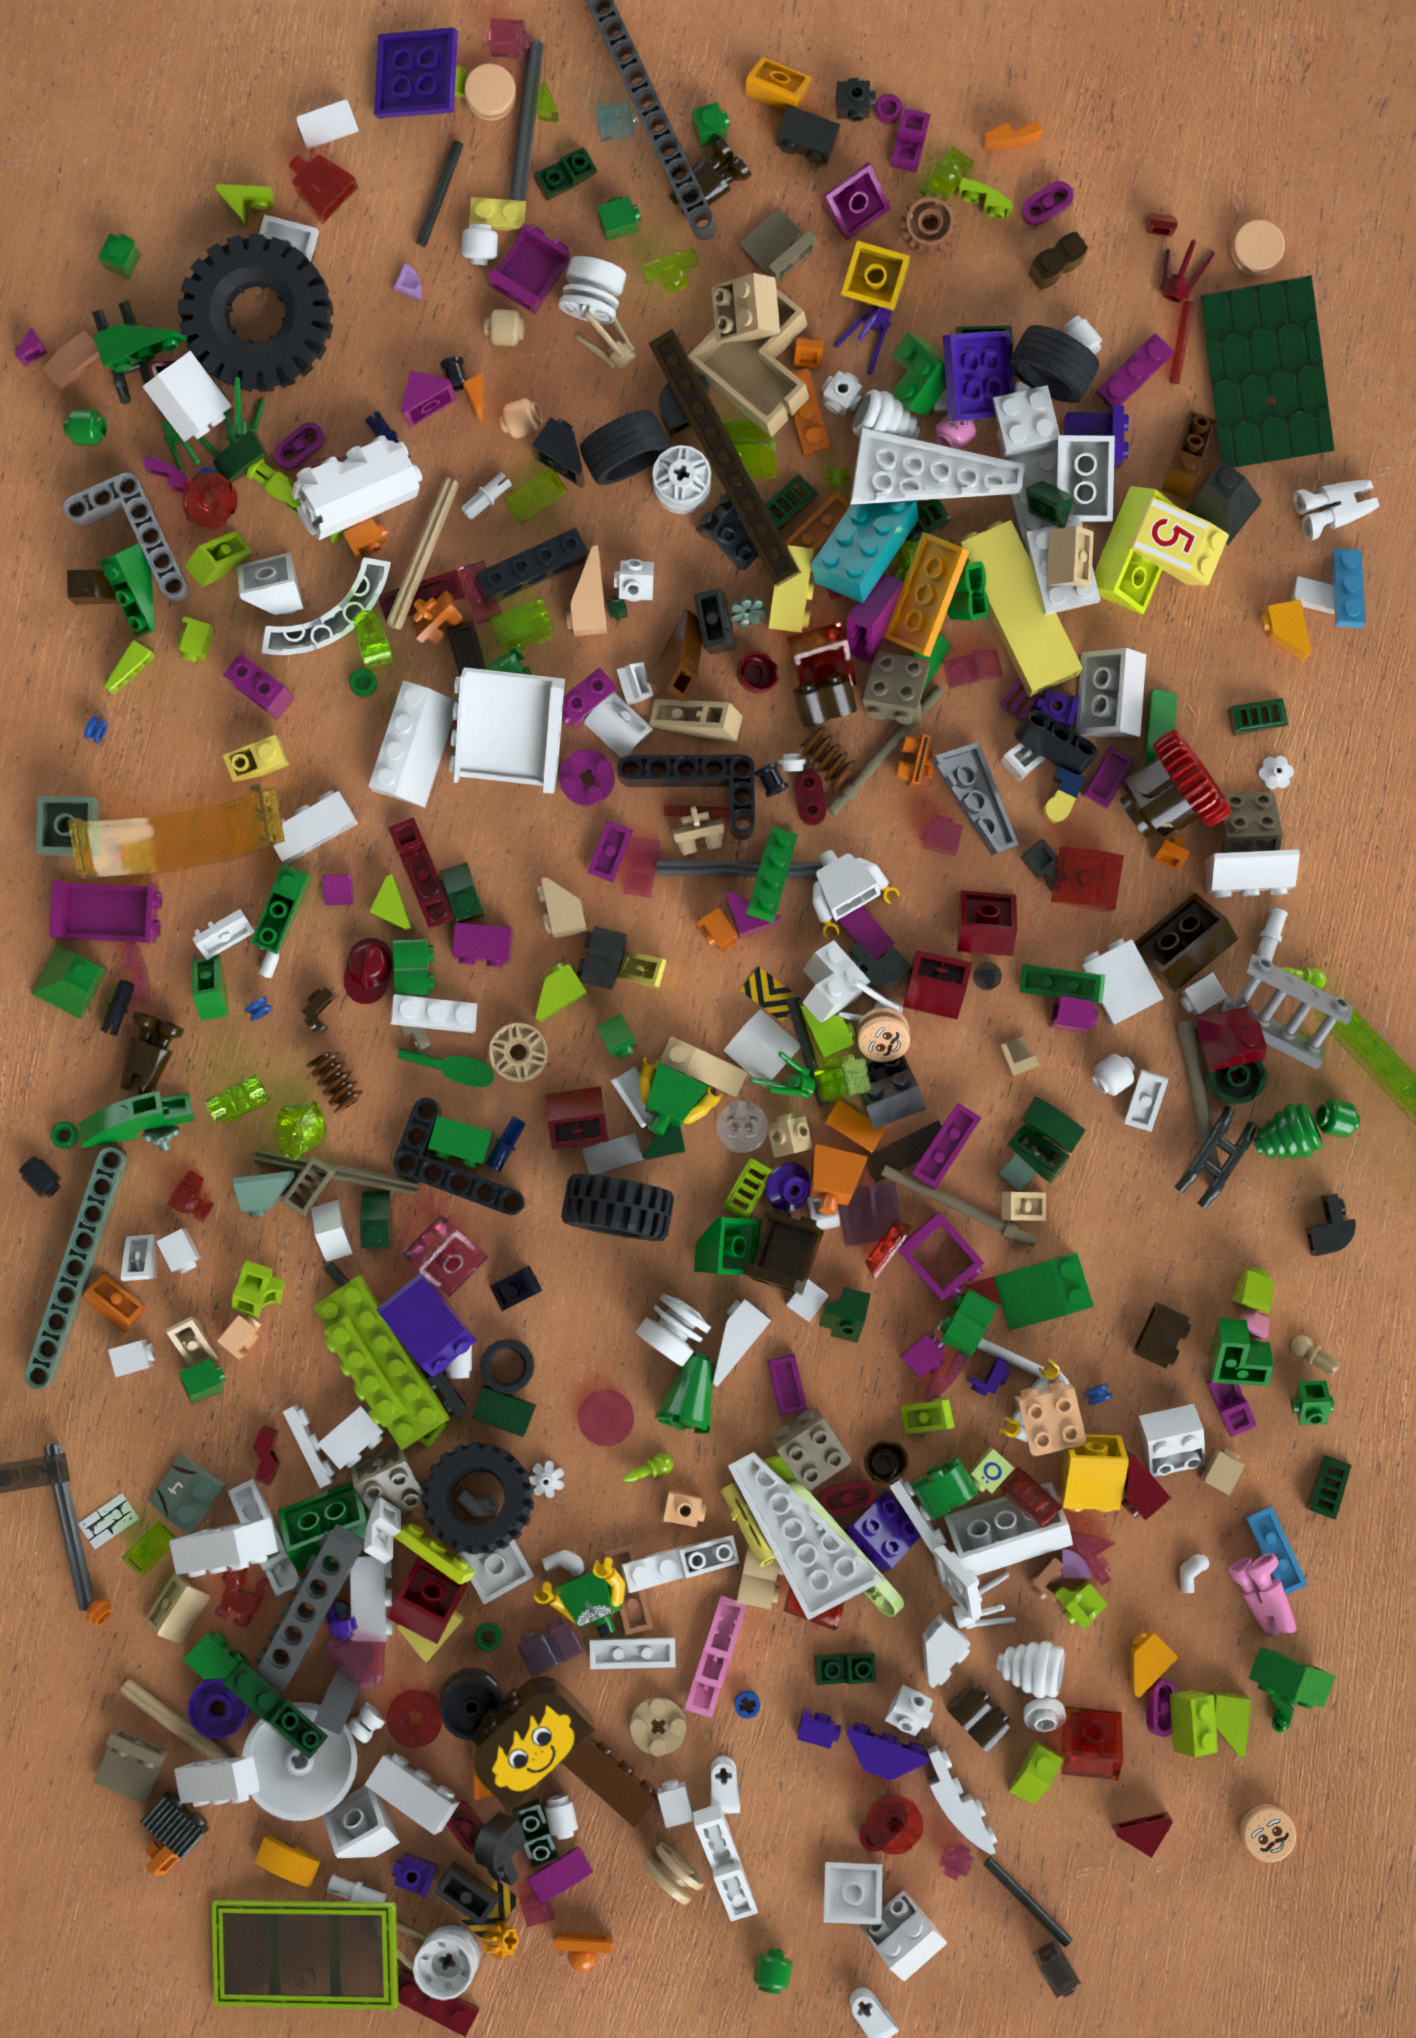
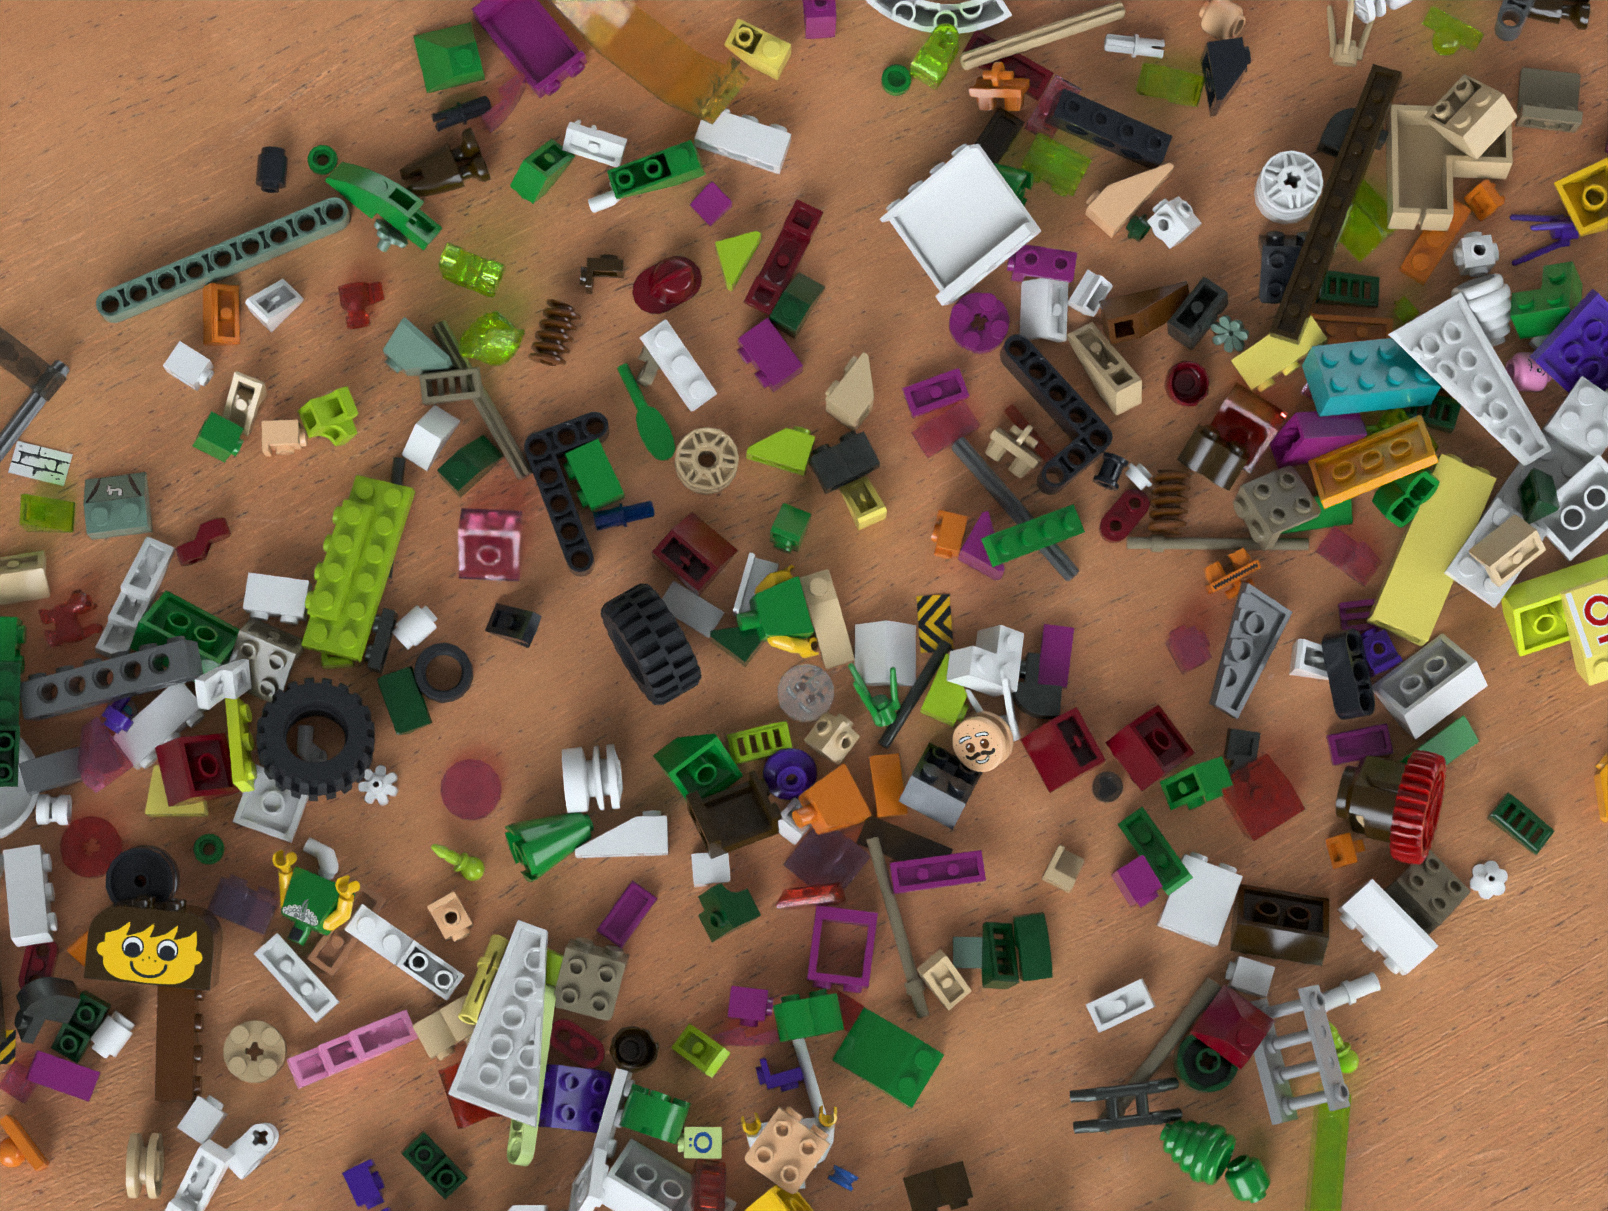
camera: 45 degrees right, 5 degrees down
(179, 1251) = (308, 329): white brick -> none
(223, 1547) = (101, 567): white brick -> none
(258, 1008) = (559, 224): blue bush -> none
(308, 1443) = (252, 543): white plate -> none
(412, 967) = (701, 316): green brick -> none
(413, 744) = (880, 161): white slope -> none
(426, 1325) = (421, 575): dark purple slope -> none
(623, 447) = (1271, 117): black tyre -> none
(750, 1696) = (326, 1113): blue bush -> none
(842, 1078) = (917, 738): clear neon green brick -> none
(845, 886) = (1078, 606): white torso -> none
(1042, 914) = (1196, 783): none -> green brick
(1067, 791) = (1300, 724): leg -> none
(1113, 1074) = (1118, 960): white head -> none

